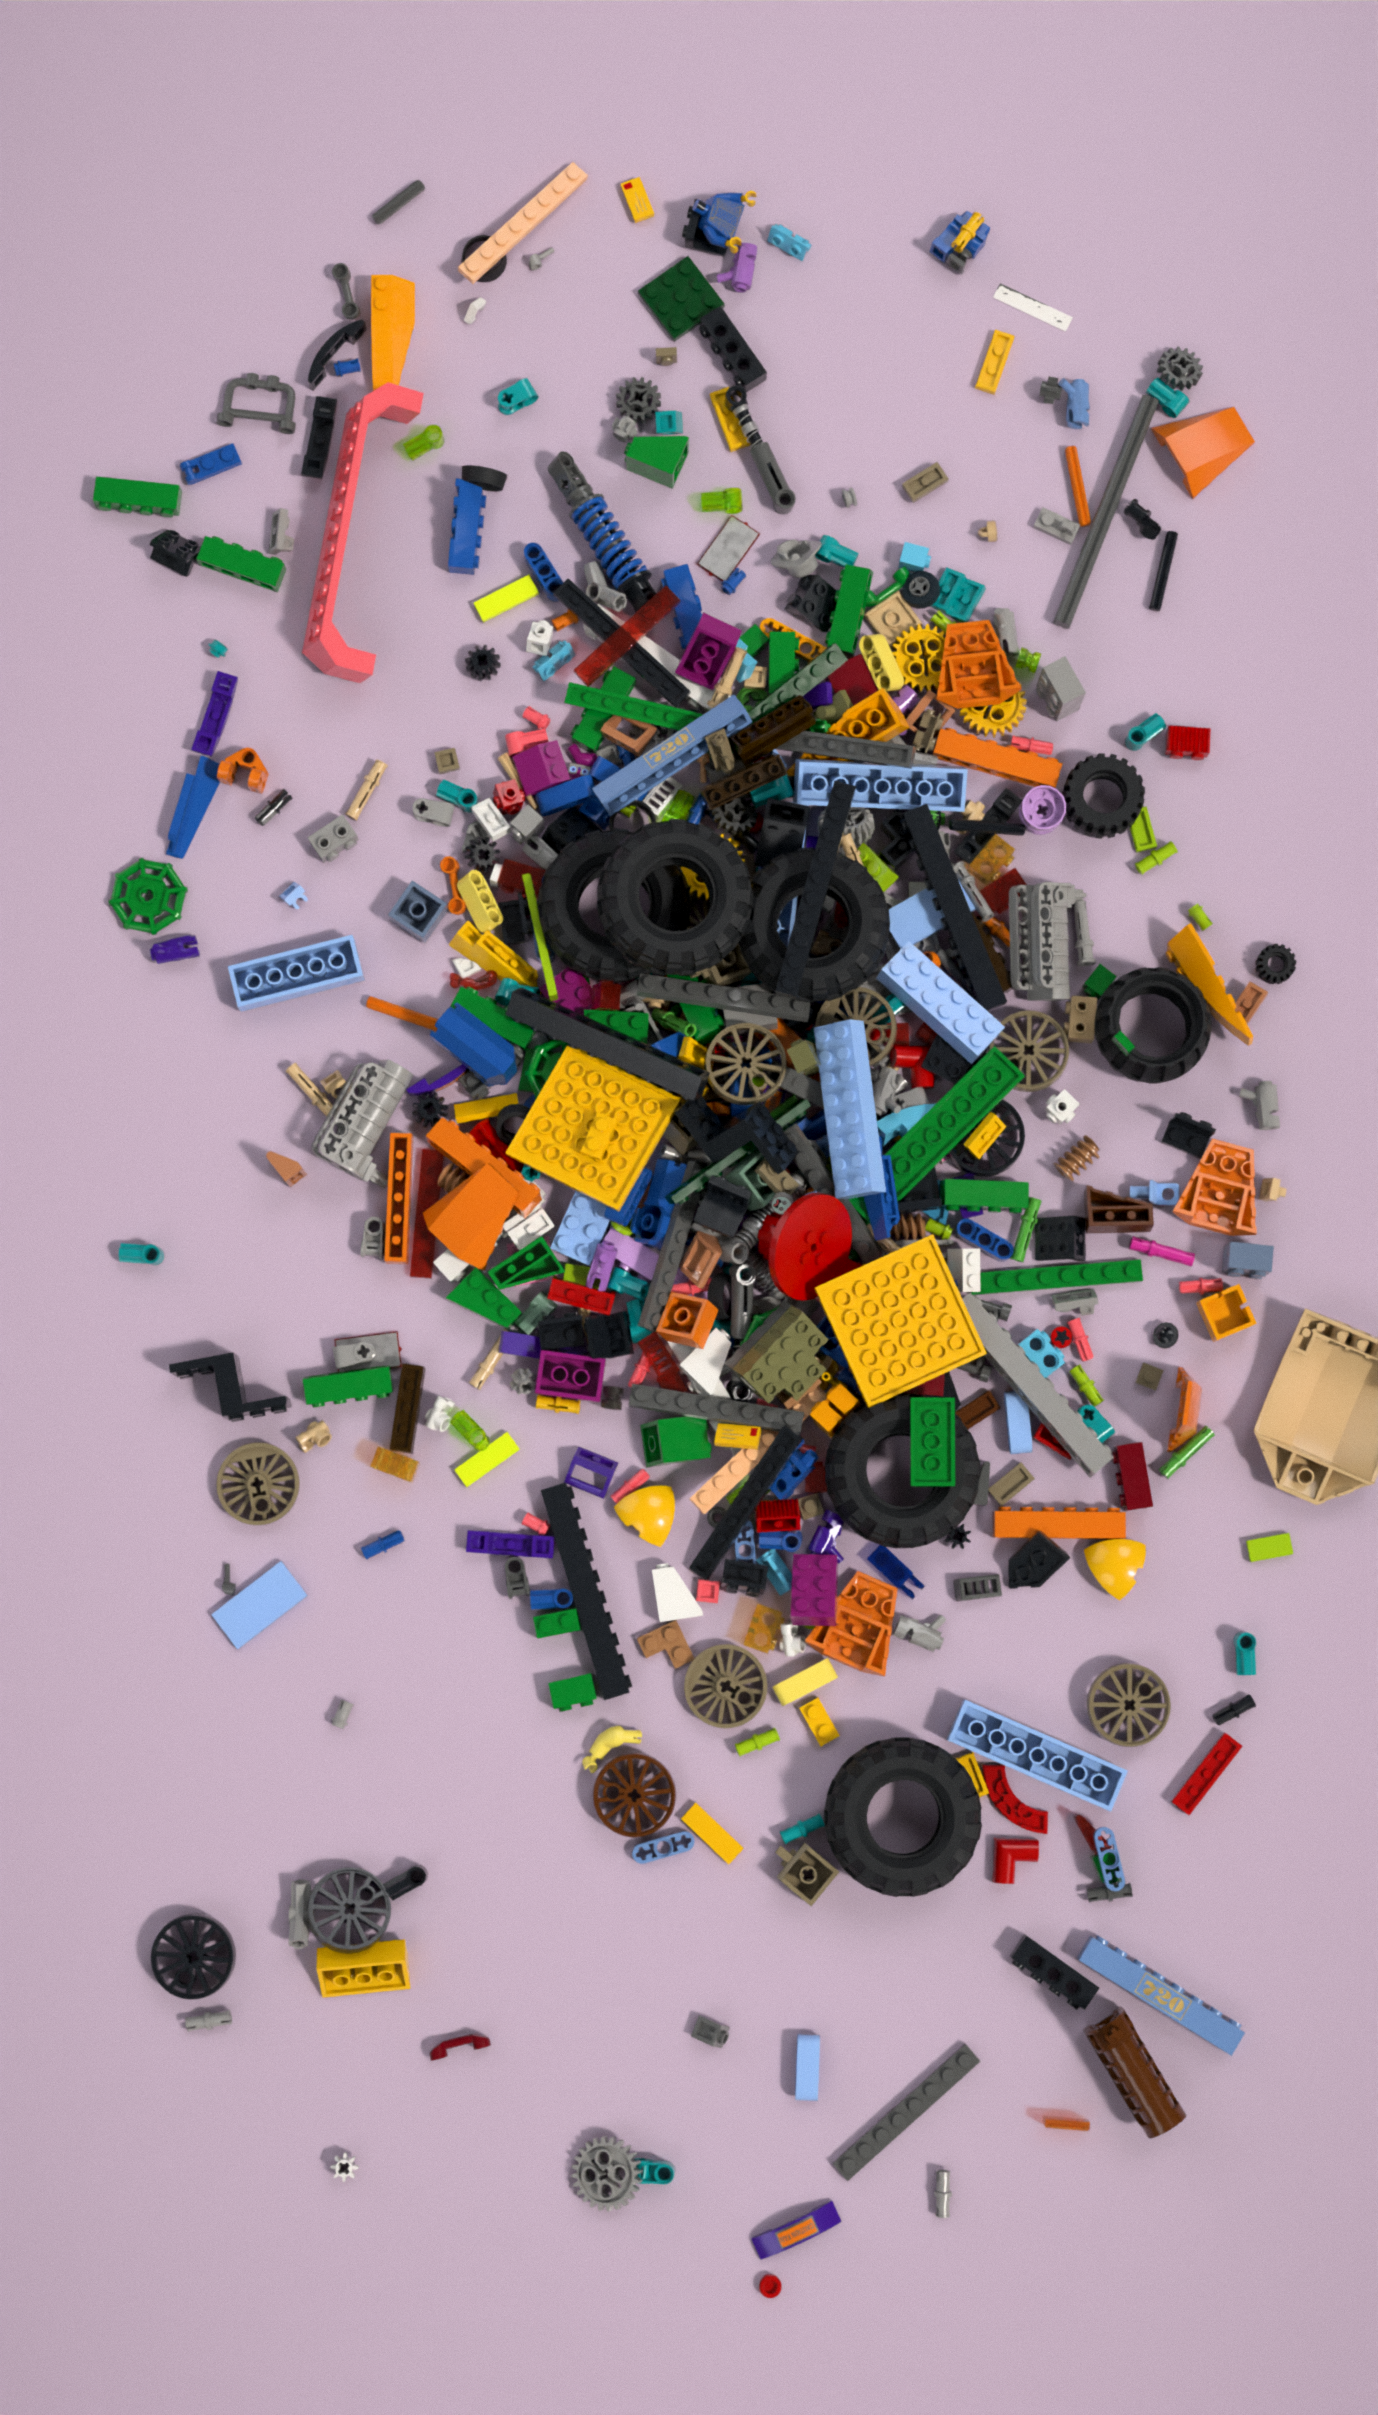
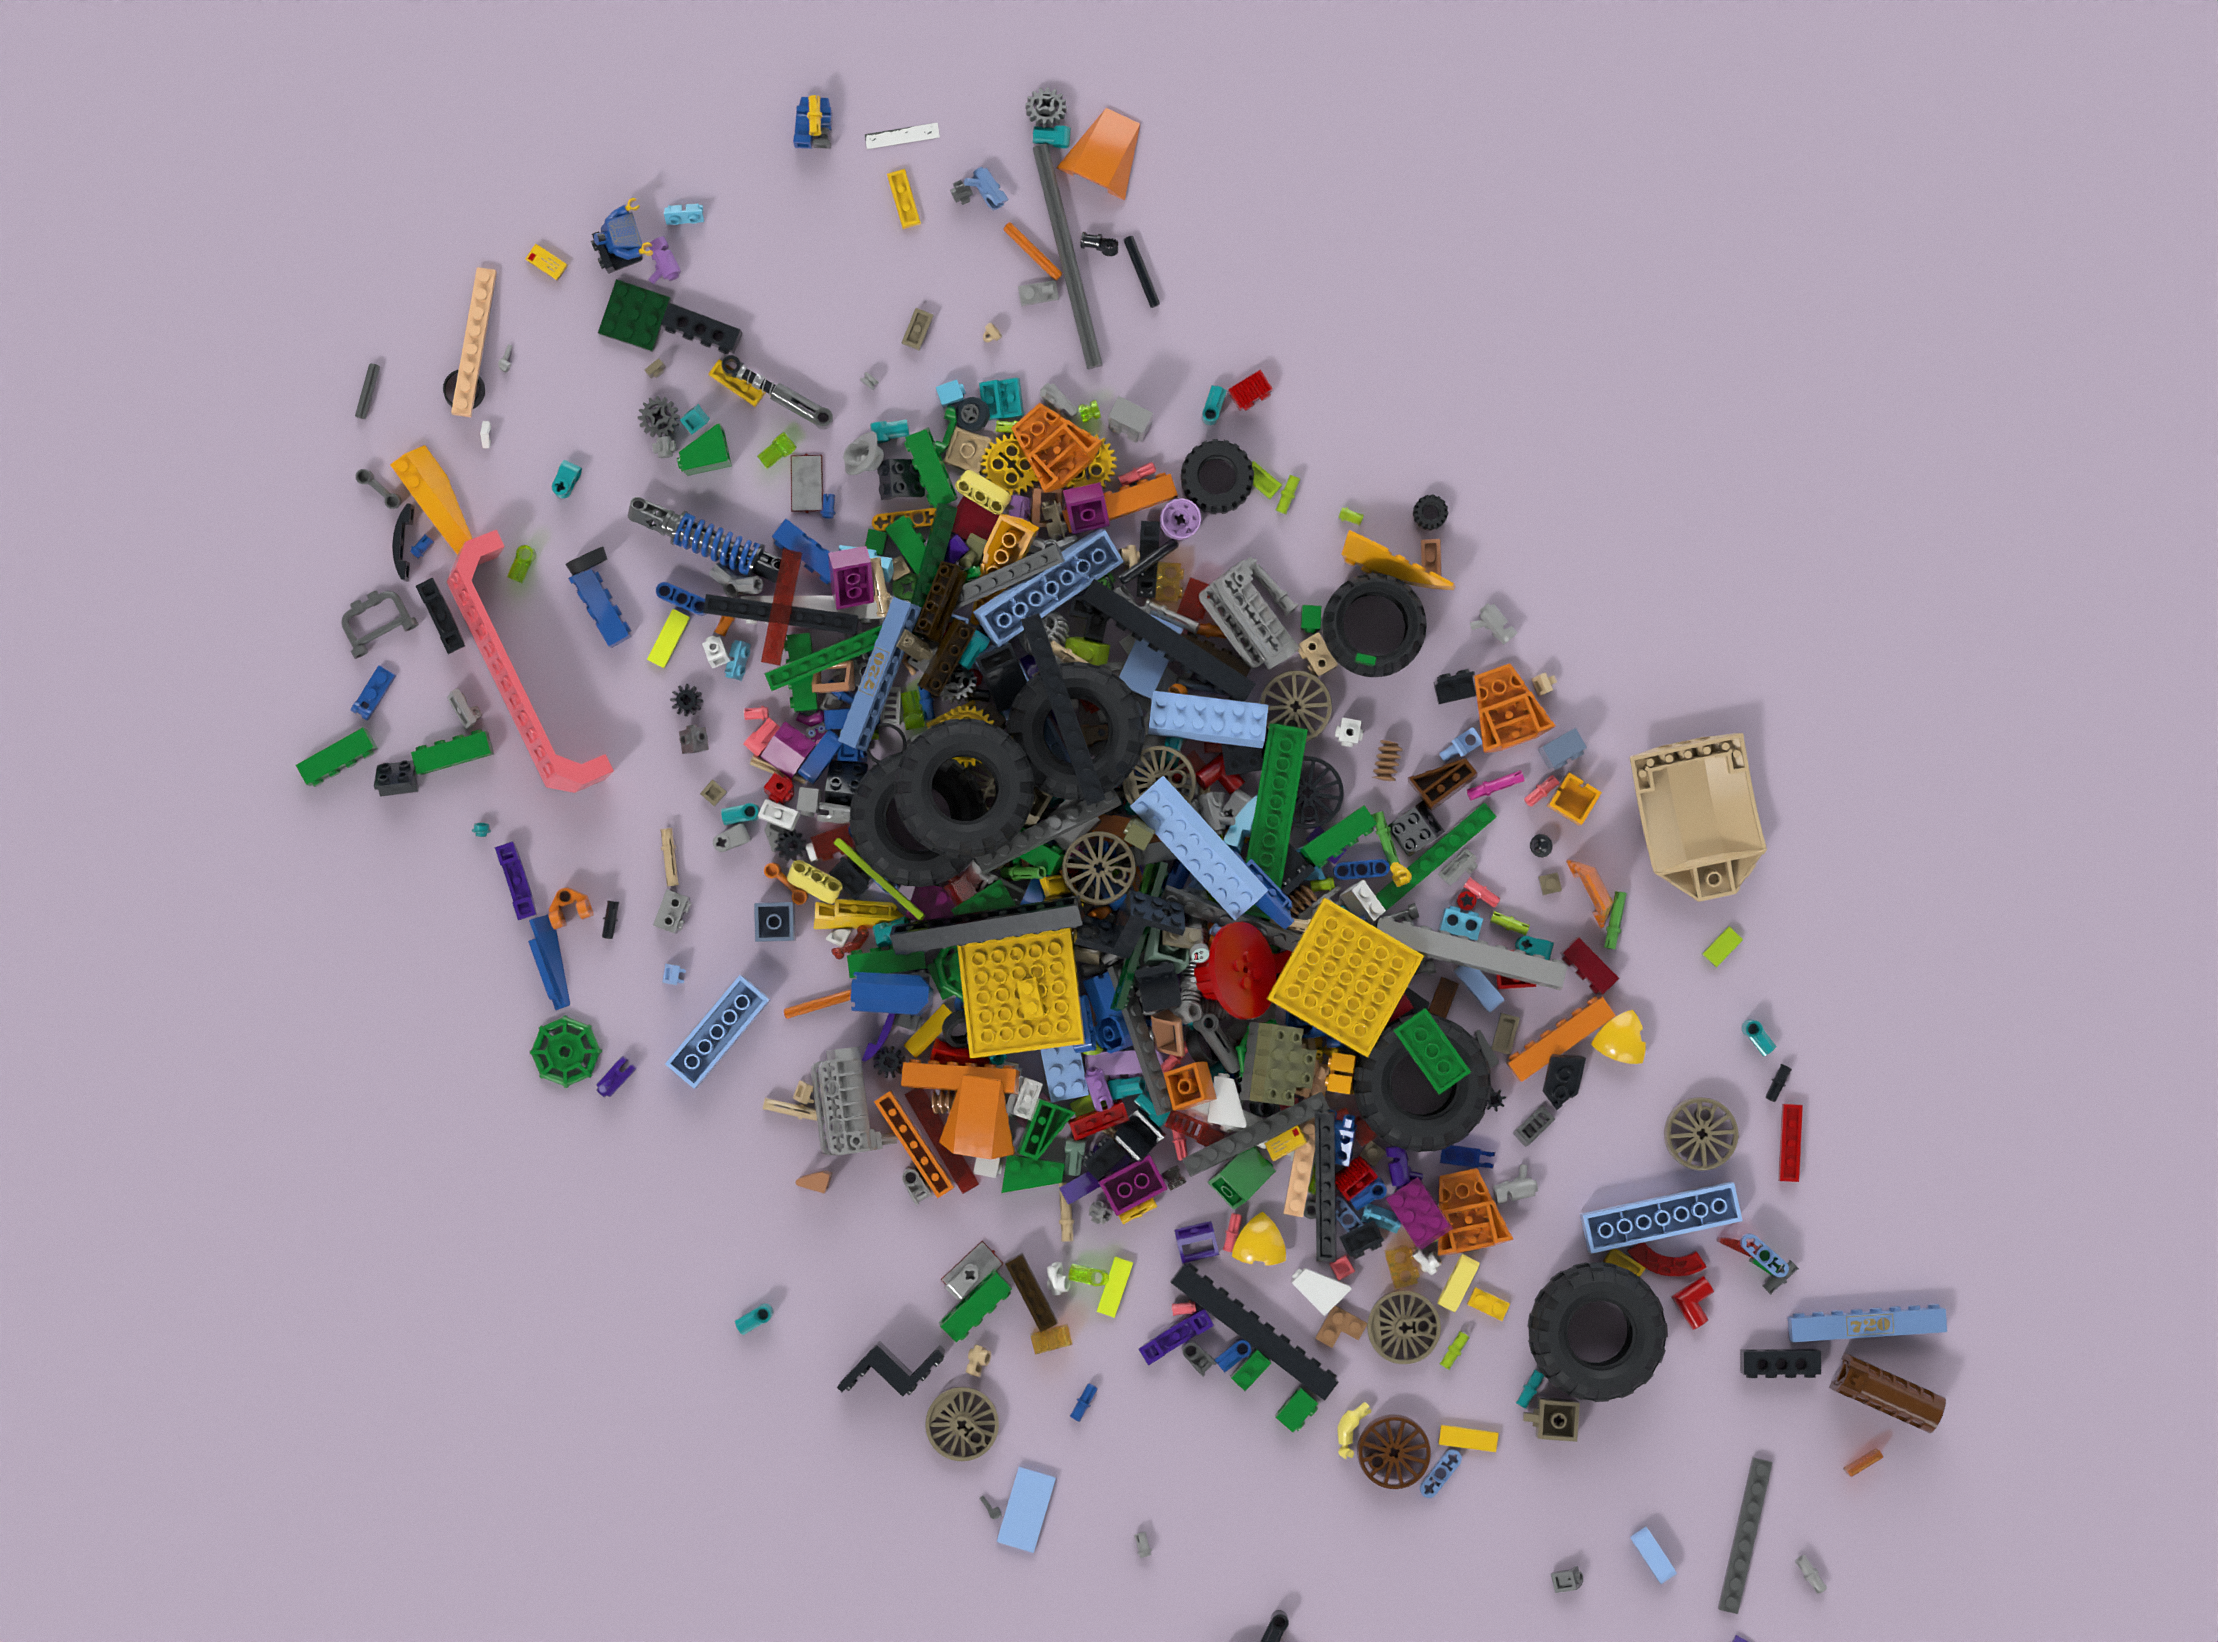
camera: 35 degrees left, 5 degrees up
(463, 701) = (693, 739): none -> flat silver brick
(964, 740) = (1086, 508): none -> magenta slope
(984, 1135) = (1309, 794): yellow plate -> none
(1018, 1269) = (1400, 874): none -> yellow arm

